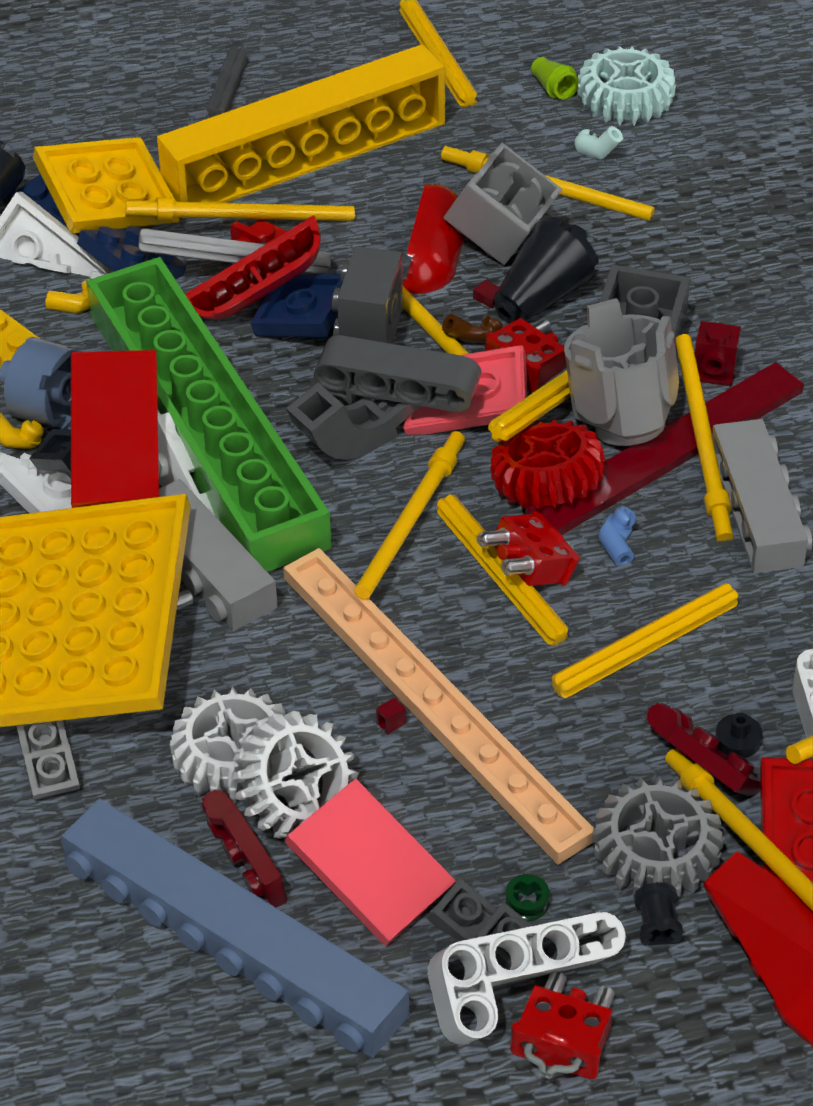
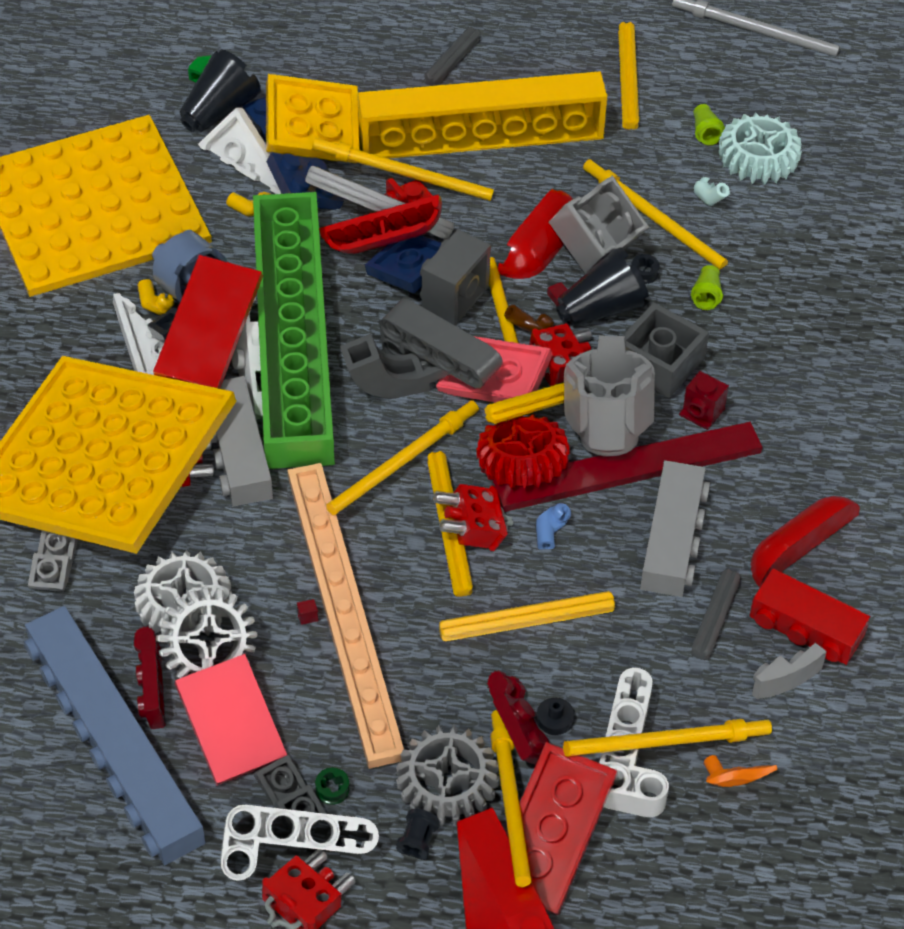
camera: 20 degrees right, 5 degrees up
(651, 241) = (707, 289): none -> lime cone
(716, 499) = (641, 521): yellow bar -> none

